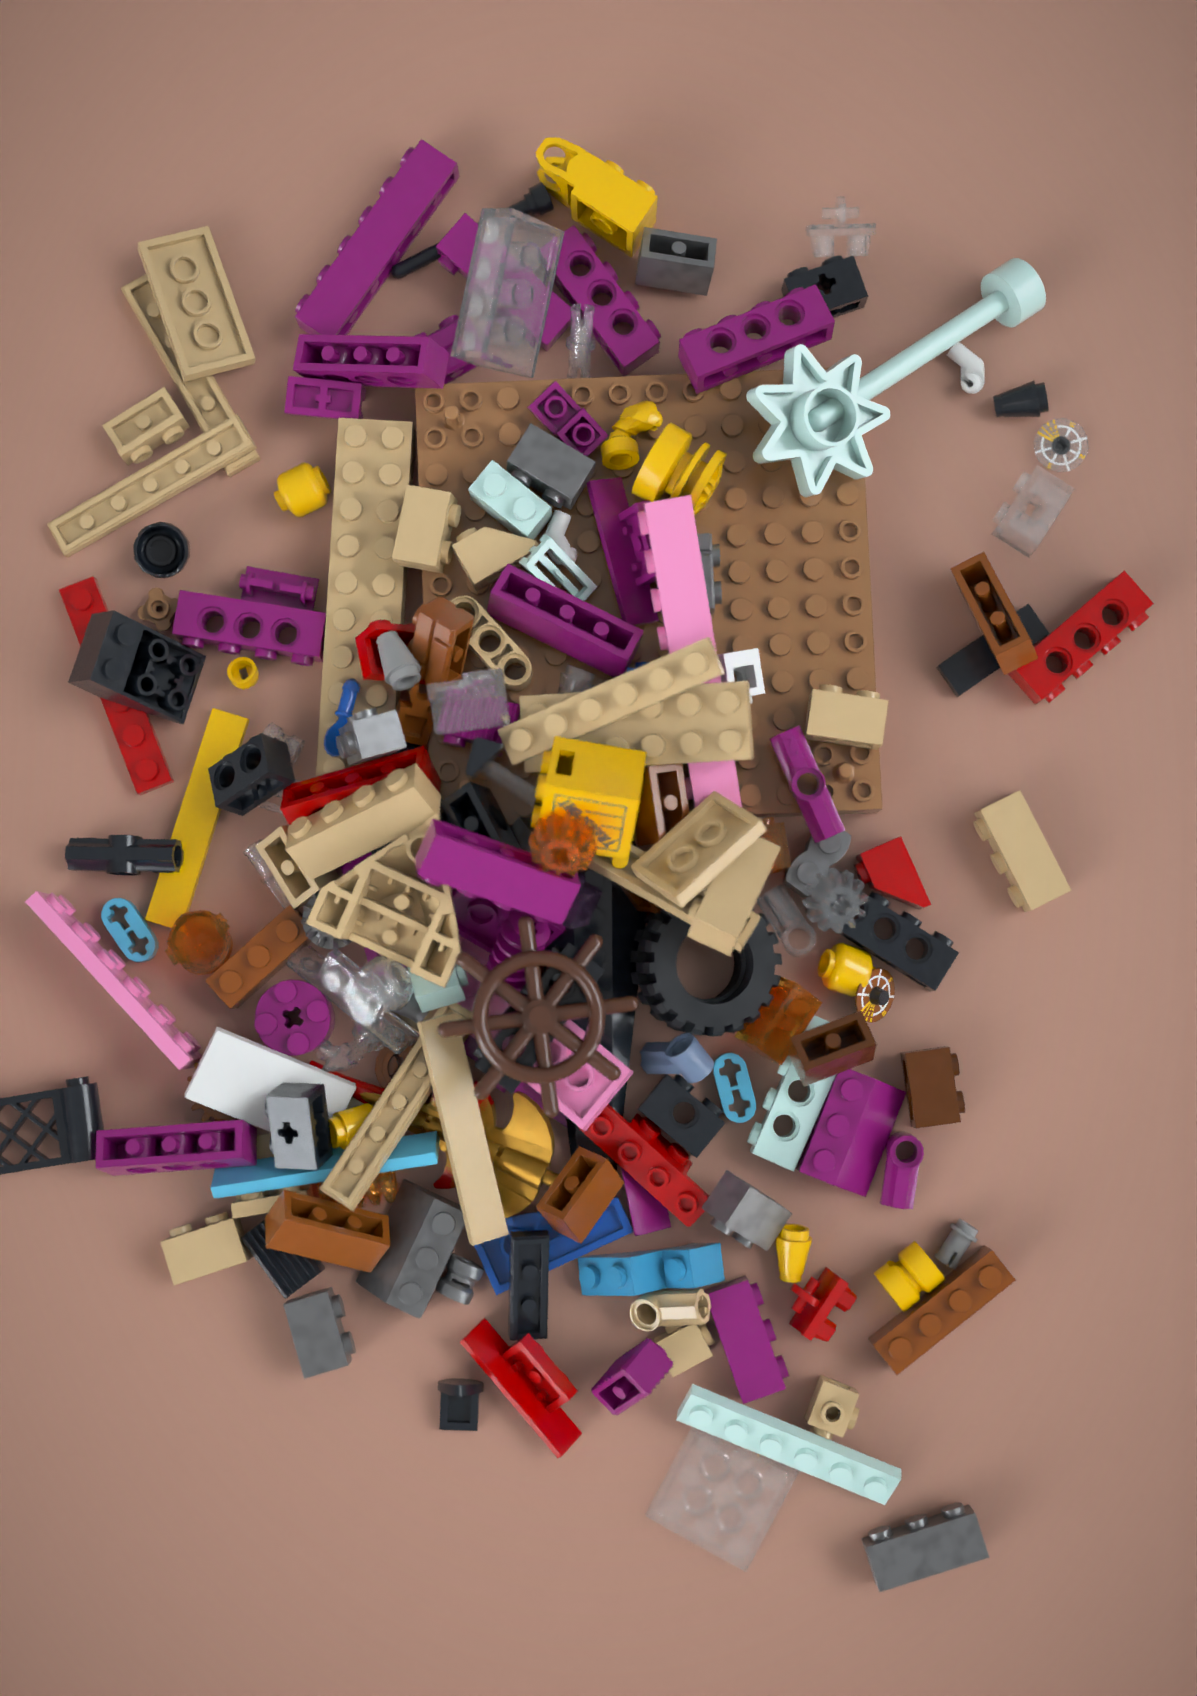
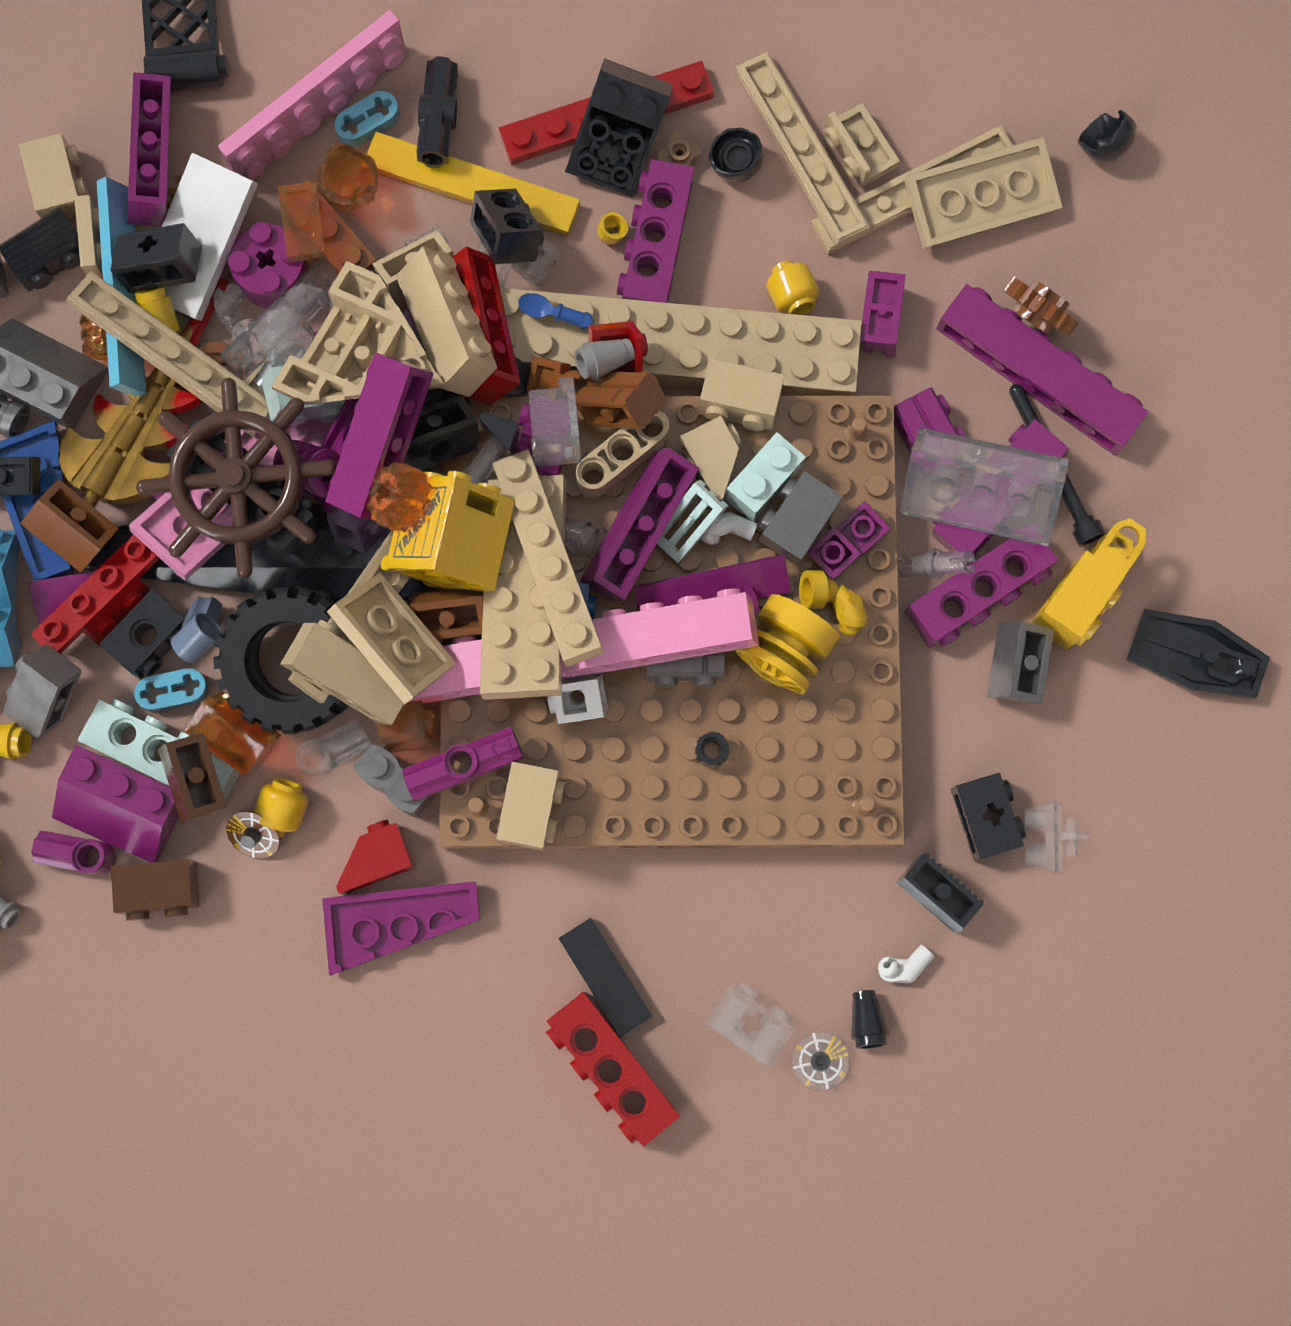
camera: 90 degrees right, 5 degrees down
(132, 181) = (1108, 137): none -> black hair
(256, 978) = (301, 221): none -> clear orange plate
(278, 588) = (694, 265): magenta hinge -> none
(317, 242) = (1041, 306): none -> dark orange gear
(327, 1231) = (55, 270): dark orange brick -> none
(370, 736) = (529, 328): brick -> none
(372, 360) = (917, 352): magenta brick -> none
(463, 1132) = (135, 413): tan tile -> none
(656, 96) = (1198, 655): none -> black piece
(709, 368) = (925, 754): magenta brick -> none
(779, 559) = (712, 737): none -> black axle
(823, 413) = (845, 796): light aqua piece -> none
(844, 908) = (339, 804): clear gear -> none
(902, 329) = (940, 893): none -> black brick
(926, 970) = (274, 885): black brick -> none
(949, 853) = (384, 922): none -> magenta wing
(994, 613) = (637, 972): dark orange brick -> none
(1021, 852) = (390, 993): tan brick -> none

